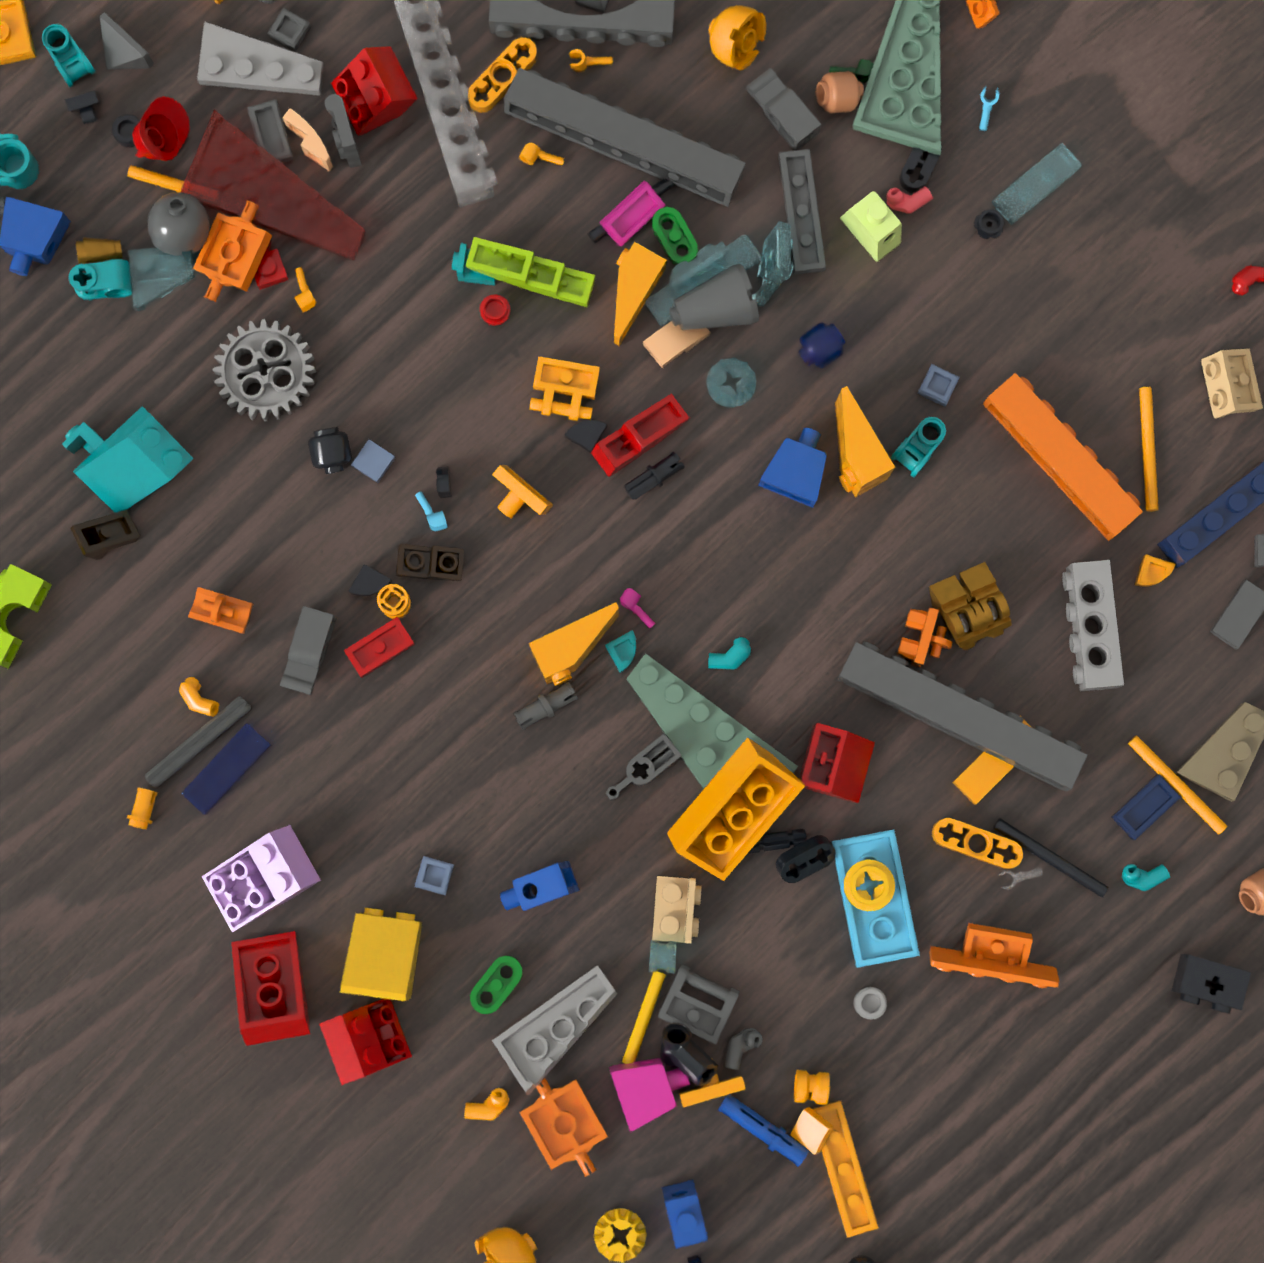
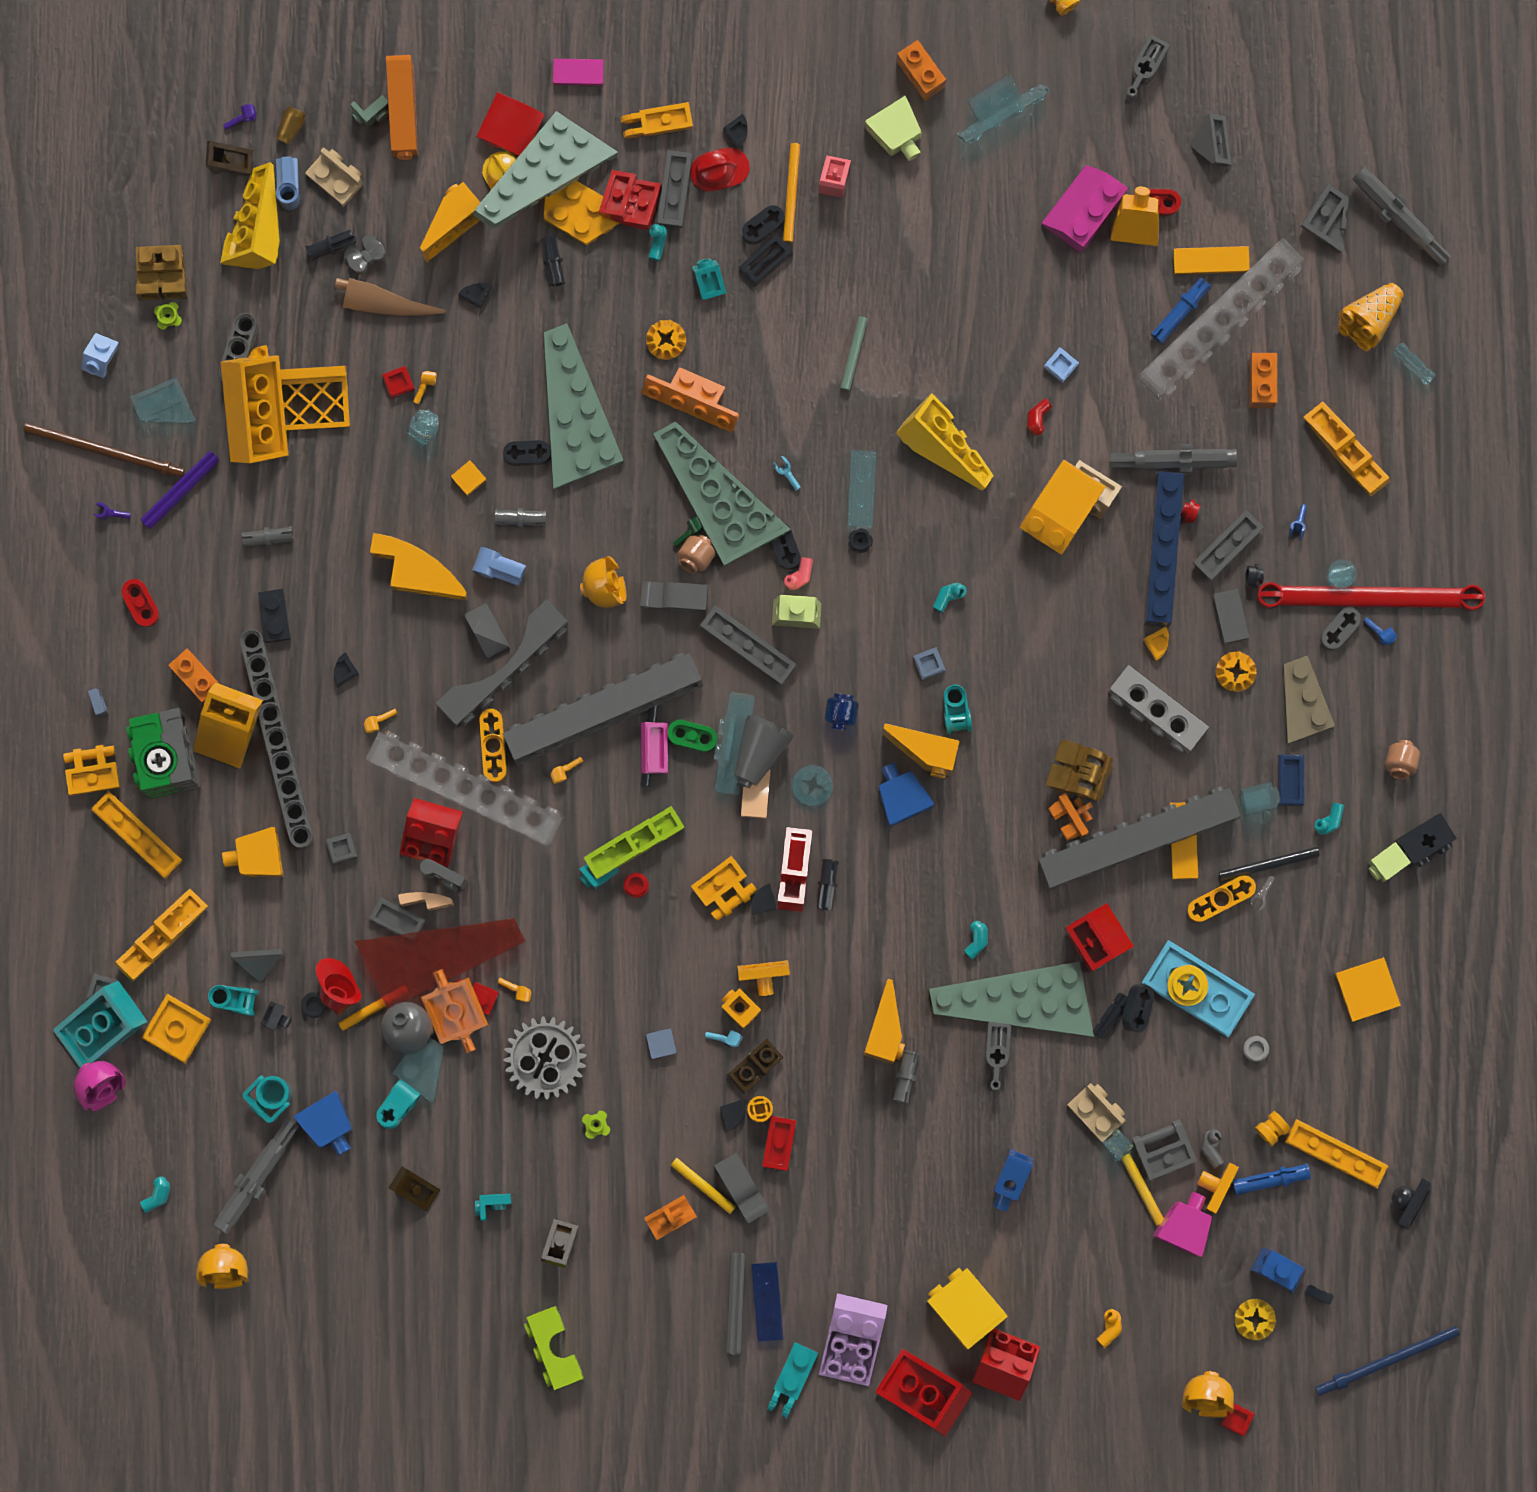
camera: 45 degrees left, 0 degrees up
(40, 360) = (414, 1188): none -> dark brown slope
(97, 250) = (375, 1092): pearl gold cone -> none
(133, 462) = (532, 1187): teal slope -> none
(142, 809) = (746, 1372): light orange pin -> none
(178, 855) = (793, 1376): none -> teal hinge
(189, 692) = (708, 1283): light orange arm -> none
(248, 63) = (342, 891): light grey wing -> none
(255, 469) = (589, 1121): none -> lime plate
(279, 615) = (702, 1185): none -> yellow bar
(329, 450) = (631, 1063): black head -> none
(434, 875) = (945, 1235): sand blue tile -> none
(443, 482) = (713, 1012): black tile -> none
(469, 513) = (741, 1018): none -> light orange brick
(496, 984) = (1044, 1257): green plate -> none
(550, 1031) = (1100, 1253): light grey wing -> none
(564, 1125) = (1161, 1292): orange plate -> none
(587, 60) = (533, 684): light orange hand -> none
(622, 650) = (914, 1000): teal tile -> none
(629, 600) = (887, 968): dark pink hand -> none
(637, 278) = (699, 787): light orange slope -> none
(682, 1052) = (1183, 1184): black piece -> none
(734, 810) = (1072, 1022): light orange slope -> none
(775, 262) = (765, 691): clear light blue wing -> none
(811, 1130) = (1297, 1151): tile -> none
(995, 954) = (1295, 949): orange bracket -> none
(1016, 344) = (948, 593): none -> teal arm
(1022, 1056) = (1367, 989): none -> light orange tile
(1063, 456) = (1041, 632): orange brick -> none
(1102, 793) = (1259, 798): none -> clear light blue brick
(1145, 202) = (937, 439): none -> yellow wedge
(1148, 448) = (1086, 579): light orange bar -> none
(1149, 68) = (853, 353): none -> sand green bar
(1157, 967) = (1388, 863): none -> yellowish green brick
(1177, 784) = (1295, 749): light orange bar -> none
(1194, 369) = (1062, 507): none -> light orange slope
(1194, 679) = (1226, 678): none -> light orange gear

